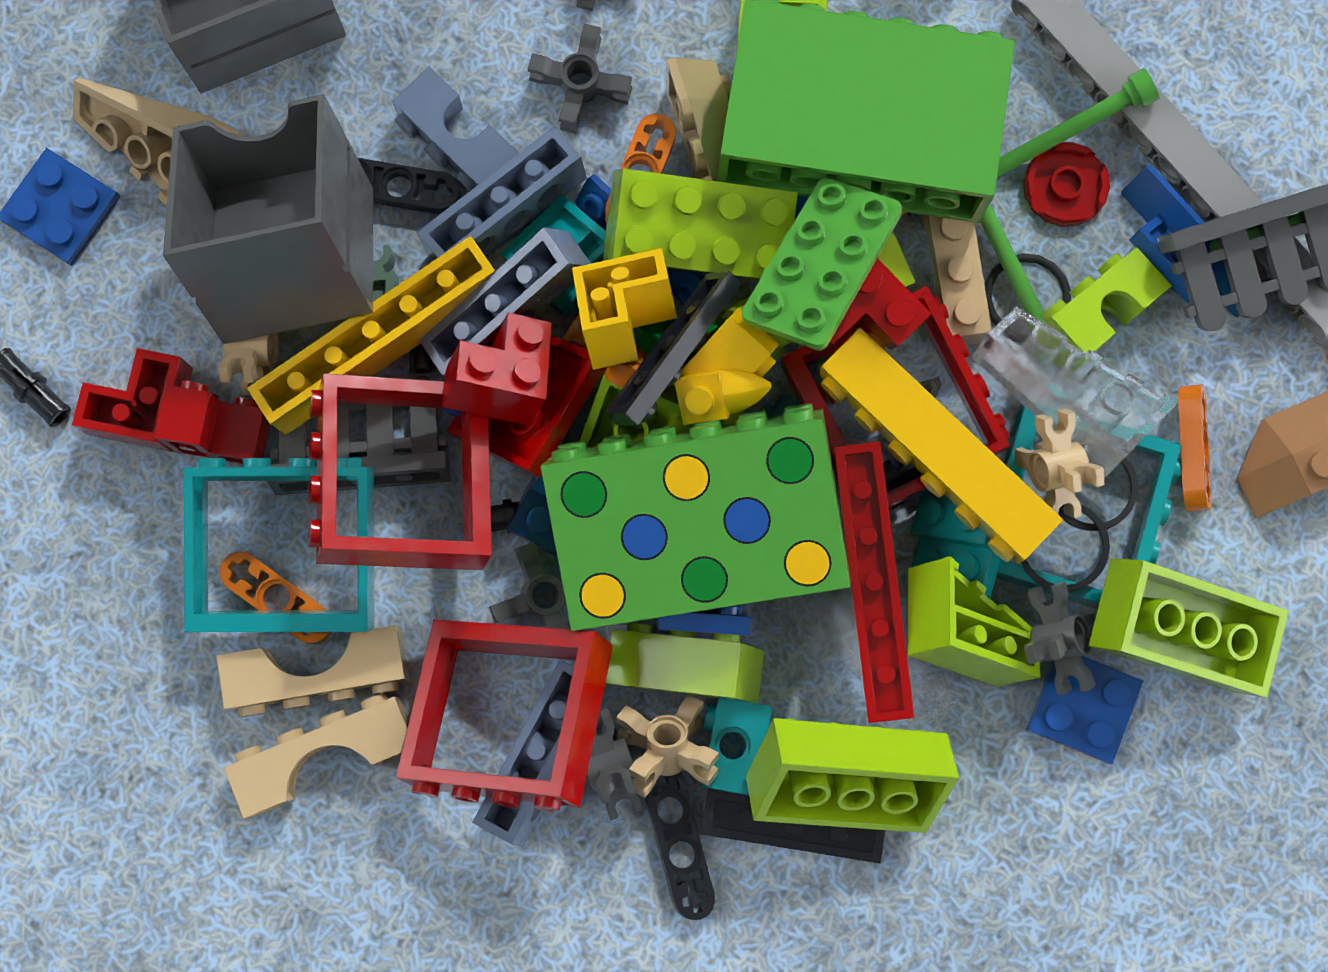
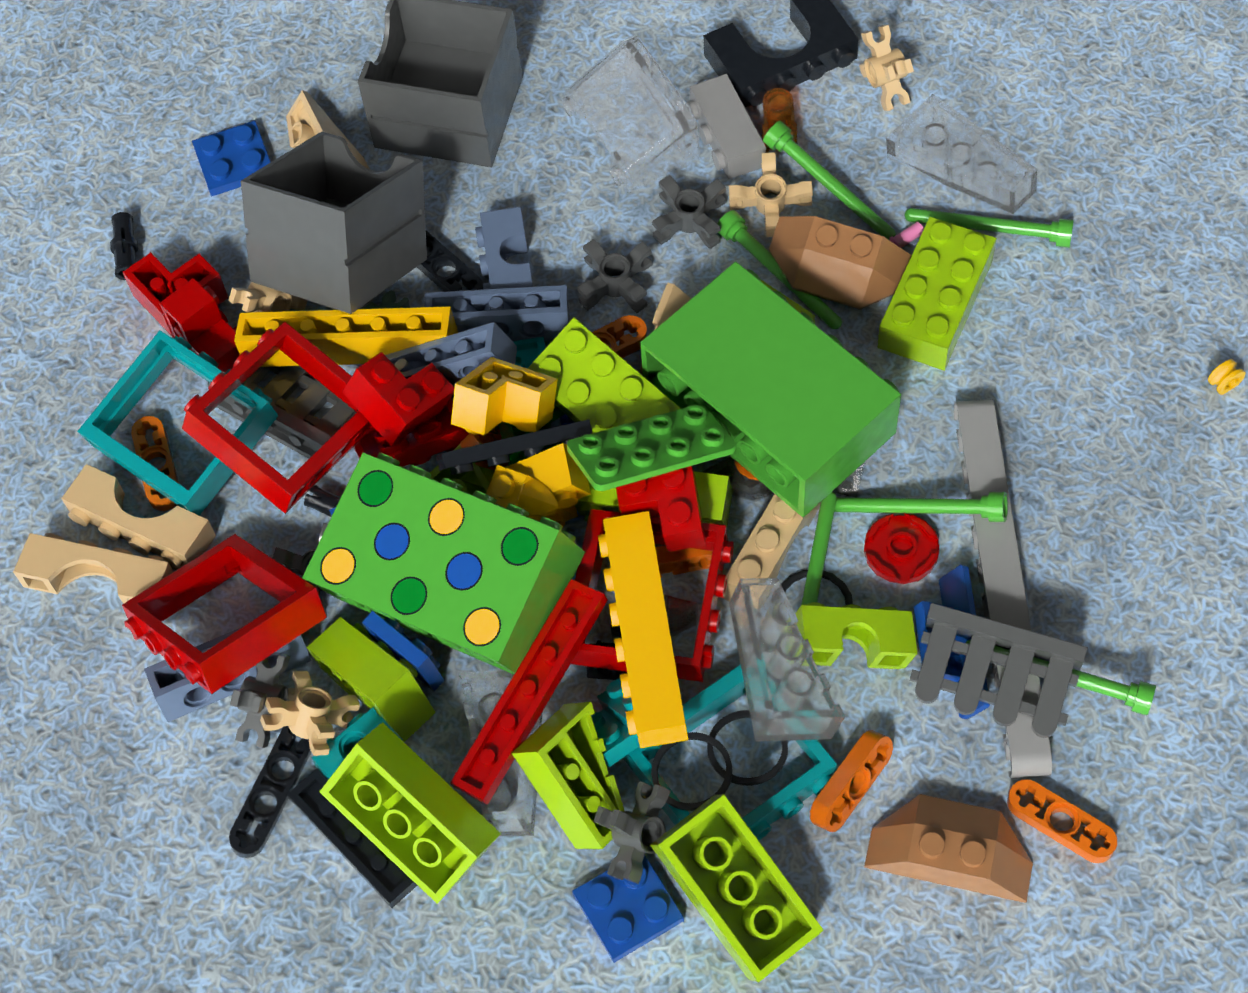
camera: 45 degrees right, 20 degrees down
(1059, 464) = (721, 701): tan pin -> none

